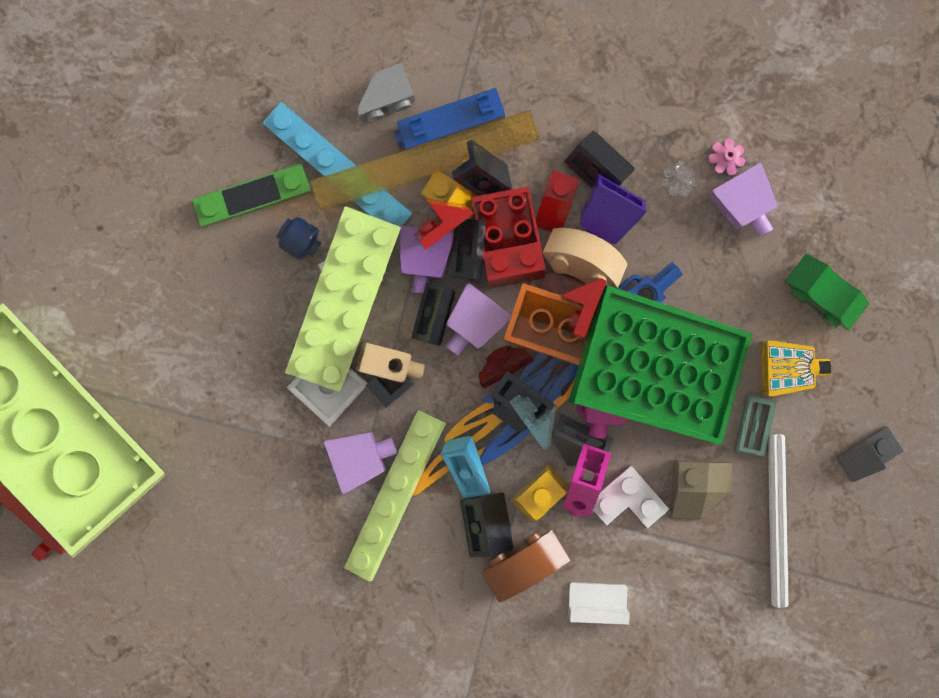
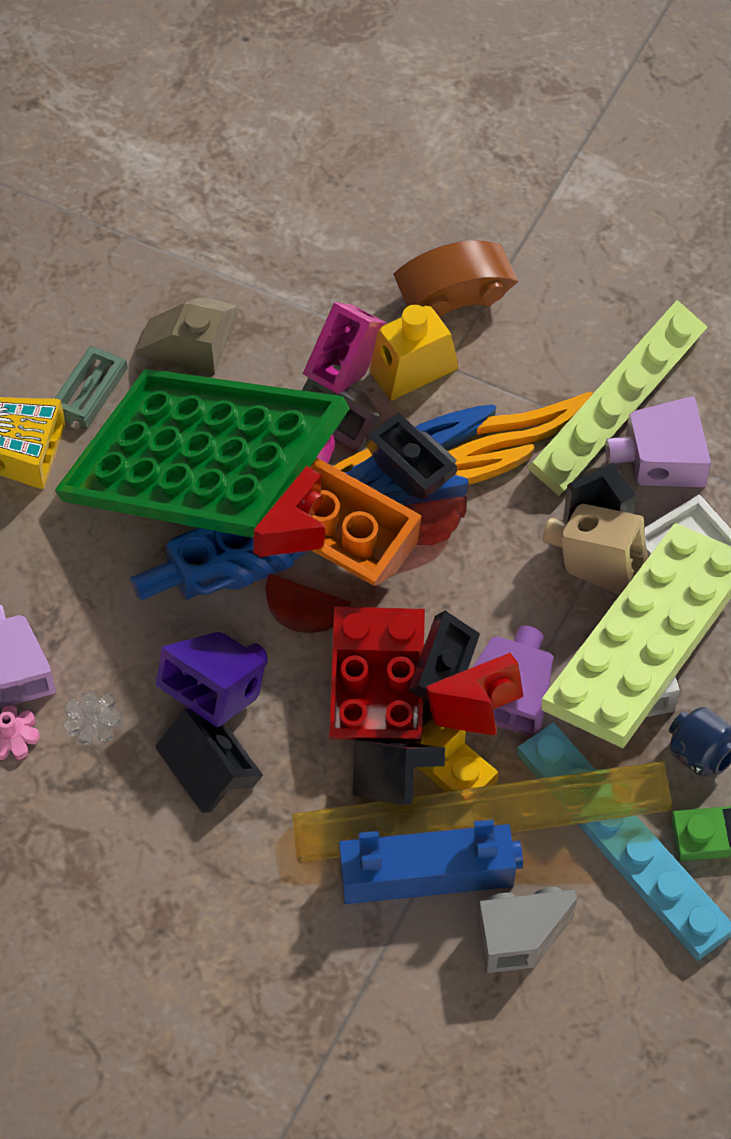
camera: 165 degrees left, 30 degrees down
(433, 313) = (515, 594): black panel -> none
(465, 467) = (511, 407): medium azure slope -> none
(474, 320) = (453, 578): lavender torso -> none
(487, 525) = (497, 338): black panel -> none
(539, 427) = (399, 407): clear light blue slope -> none
(556, 201) = (289, 723): red slope -> none
(584, 256) = (270, 620): tan brick -> none
(598, 603) = (368, 225): white panel -> none
(629, 491) = (278, 338): white plate -> none
(778, 520) = (95, 277): white axle -> none

